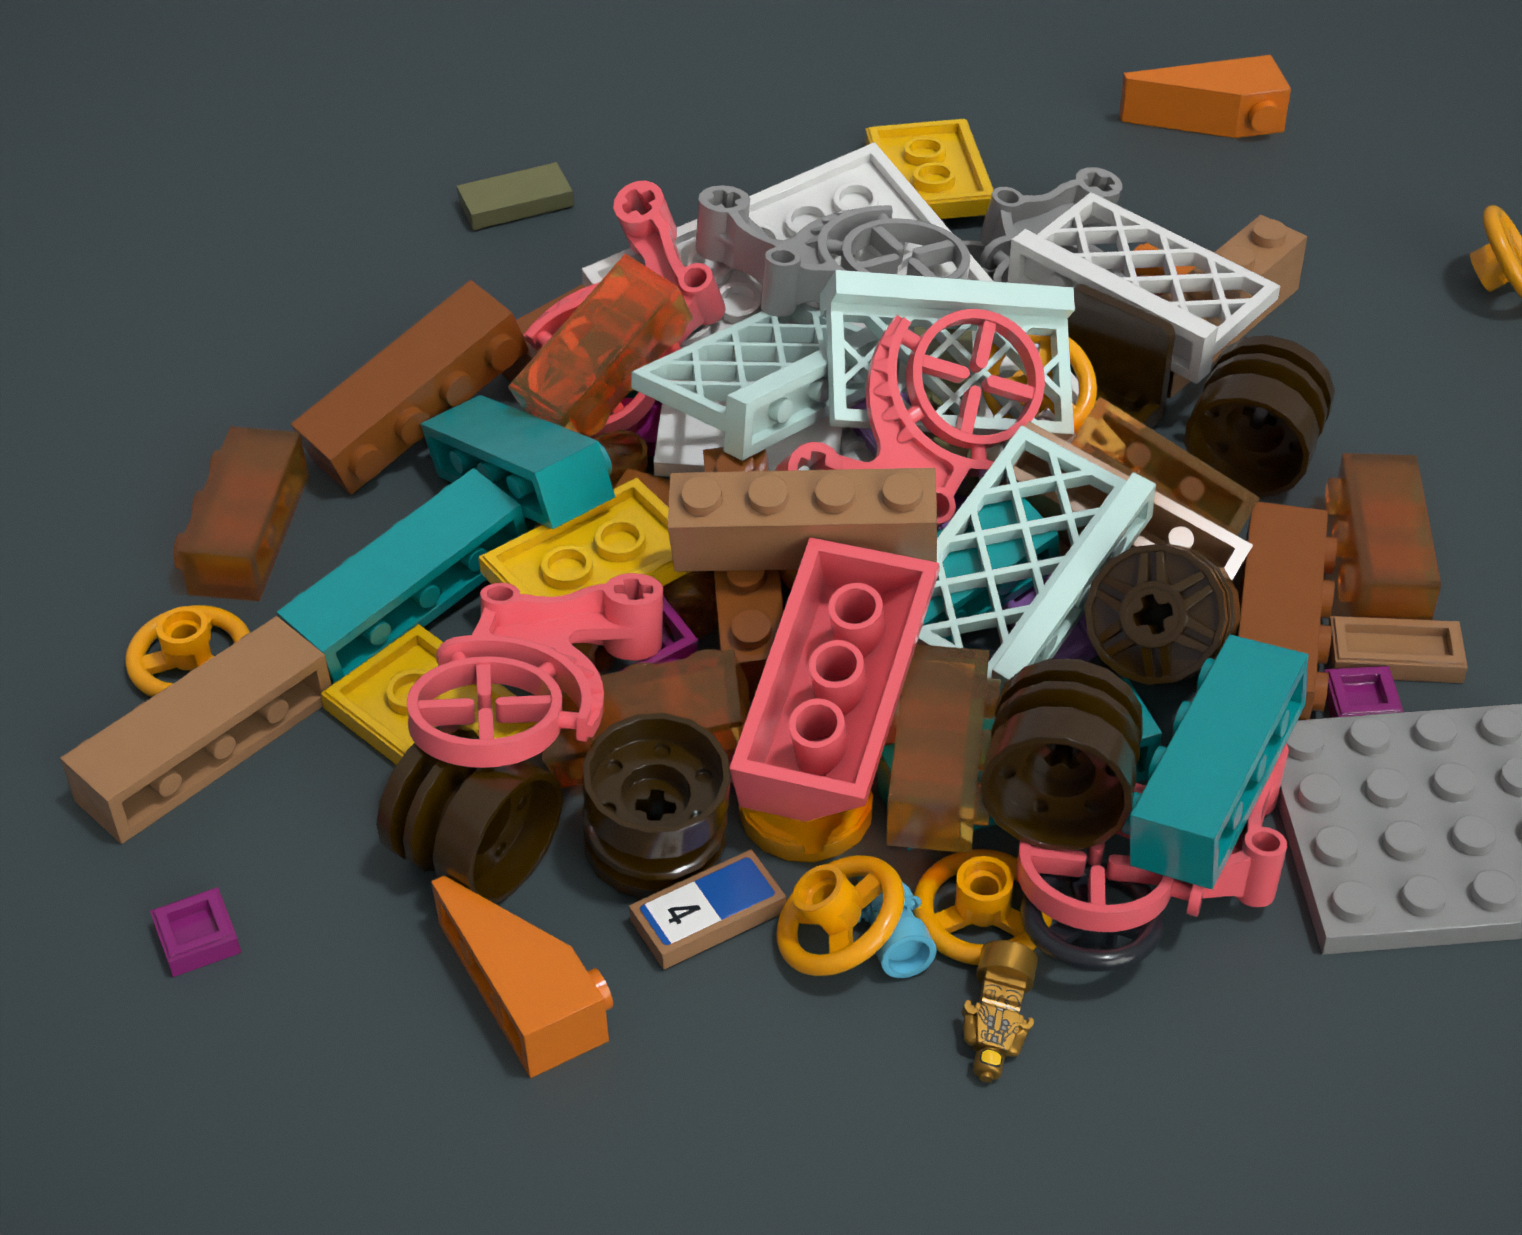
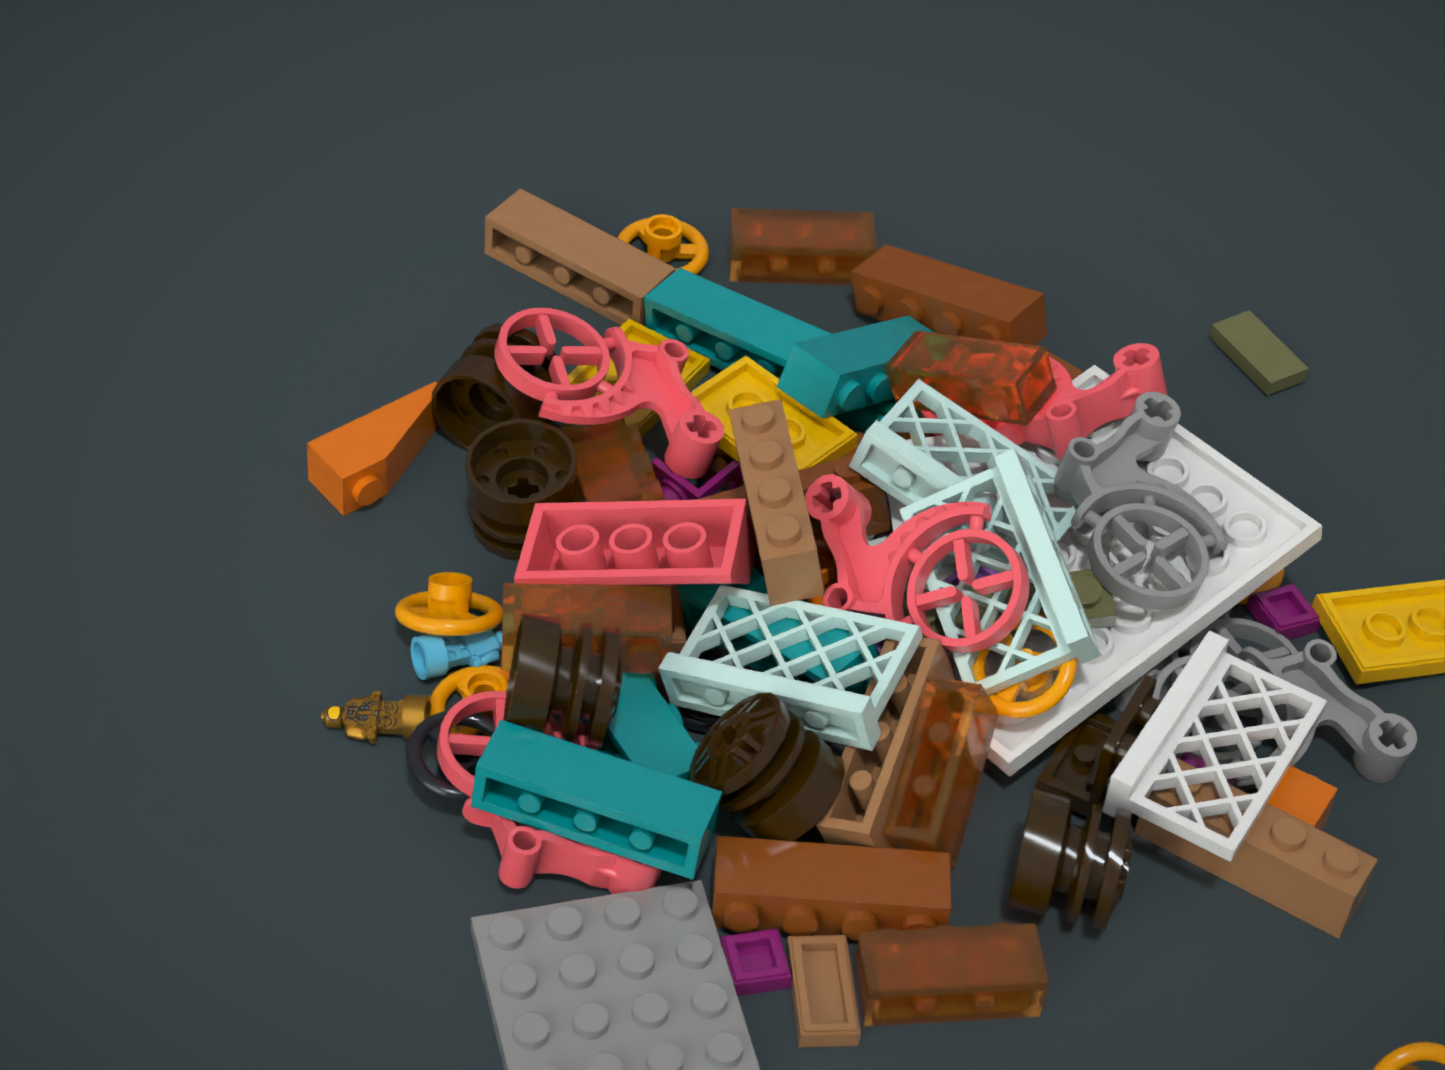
camera: 75 degrees right, 0 degrees up
(195, 931) = (407, 296): magenta tile -> none
(707, 909) = (459, 547): tile -> none

